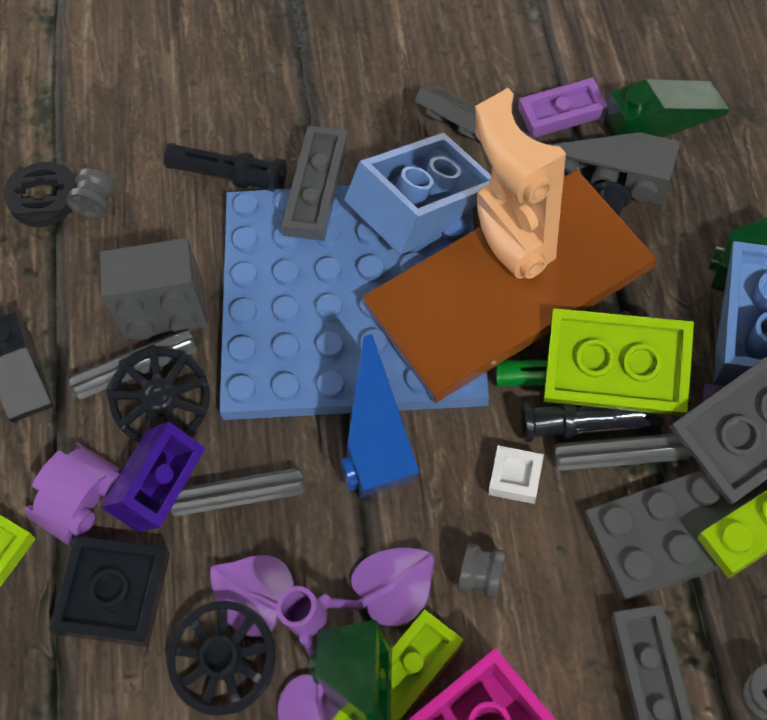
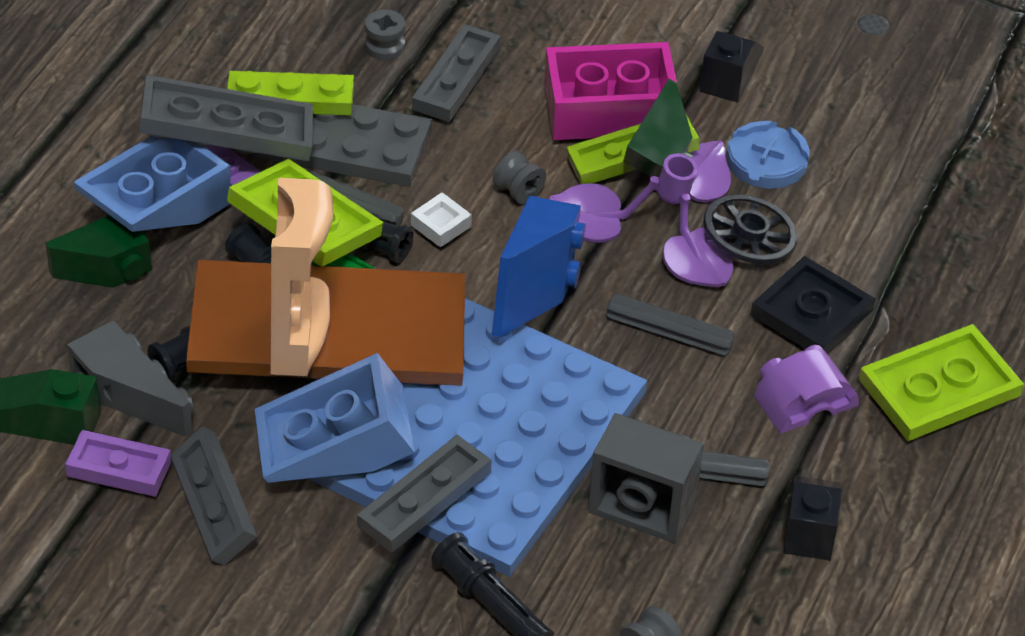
camera: 155 degrees left, 15 degrees down
(153, 477) = (735, 343): dark purple brick -> none
(159, 394) = (694, 420): black wheel -> none

